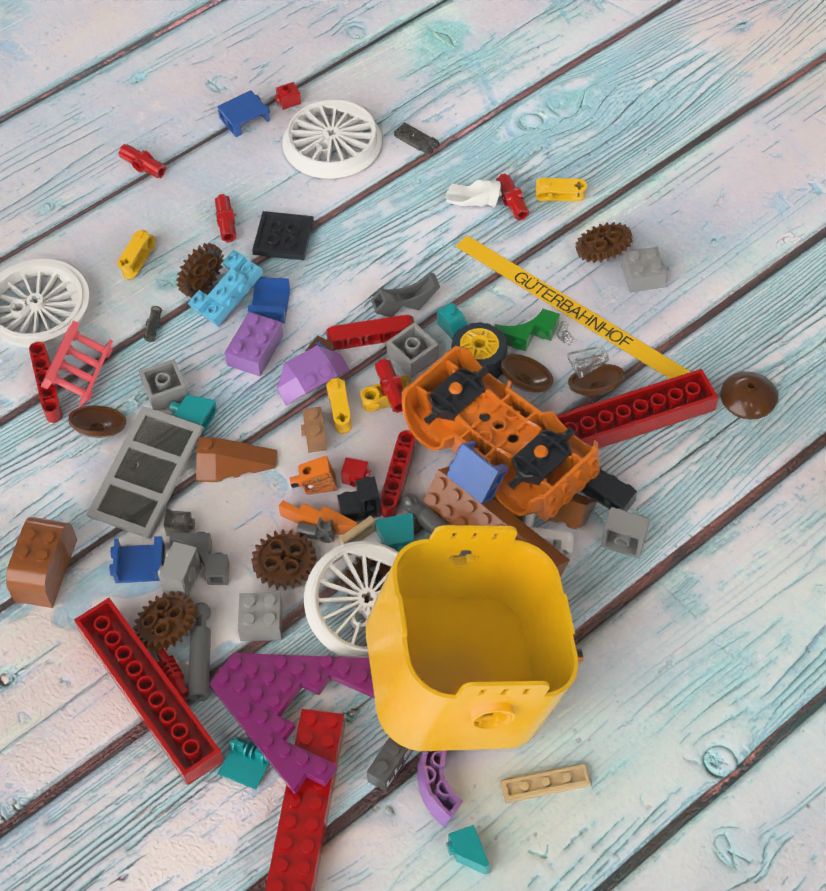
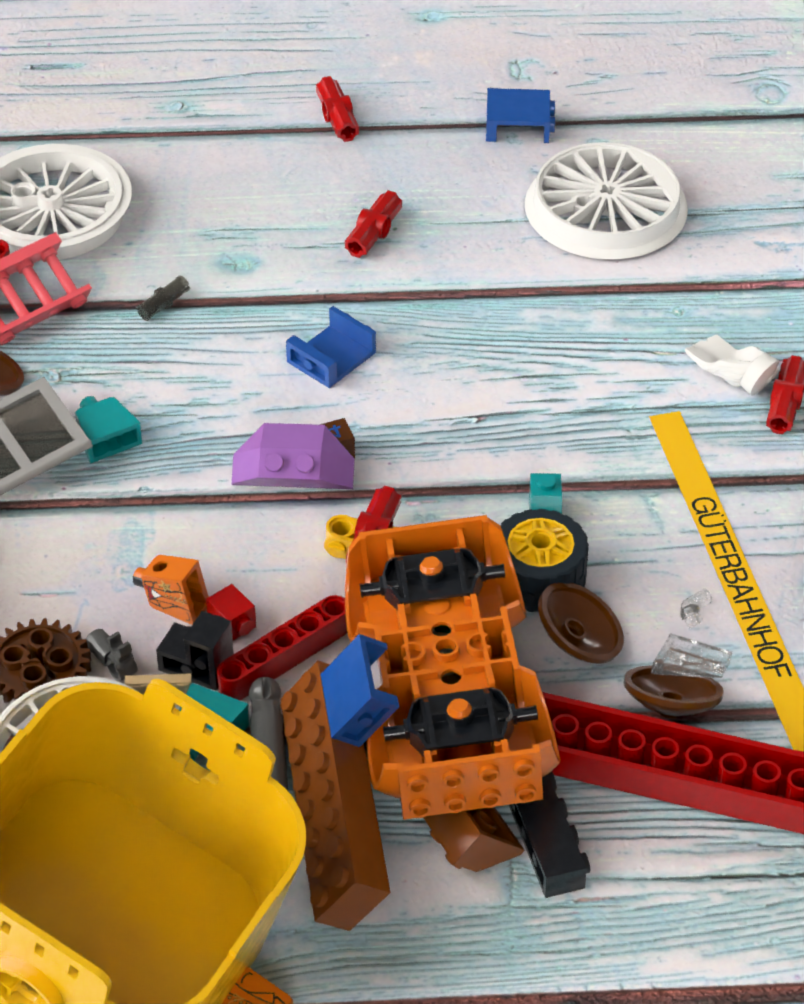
camera: 35 degrees right, 10 degrees down
(136, 253) = (221, 207): yellow piece -> none
(163, 384) = (99, 369): light grey brick -> none
(200, 269) = (268, 259): reddish brown gear -> none
(227, 458) = (88, 499): dark orange wedge -> none
(229, 290) = (288, 305): medium azure bracket -> none
(254, 344) = (259, 387): medium lavender brick -> none
(283, 235) = (427, 282): black plate -> none
(287, 96) = (596, 122): red brick -> none
(311, 515) = (117, 620): orange slope -> none
(314, 429) = (231, 530): medium nougat brick -> none
(339, 404) = (293, 519): yellow piece -> none
(367, 332) = (425, 457): red beam -> none
(389, 301) = (521, 442): dark grey arch -> none
(412, 349) = (452, 495): light grey brick -> none
(416, 138) = (723, 256): clear smoke hinge -> none
(542, 326) = (626, 575): green arch -> none
(561, 540) = (419, 870): white beam -> none
(625, 532) = (514, 912): light grey brick -> none

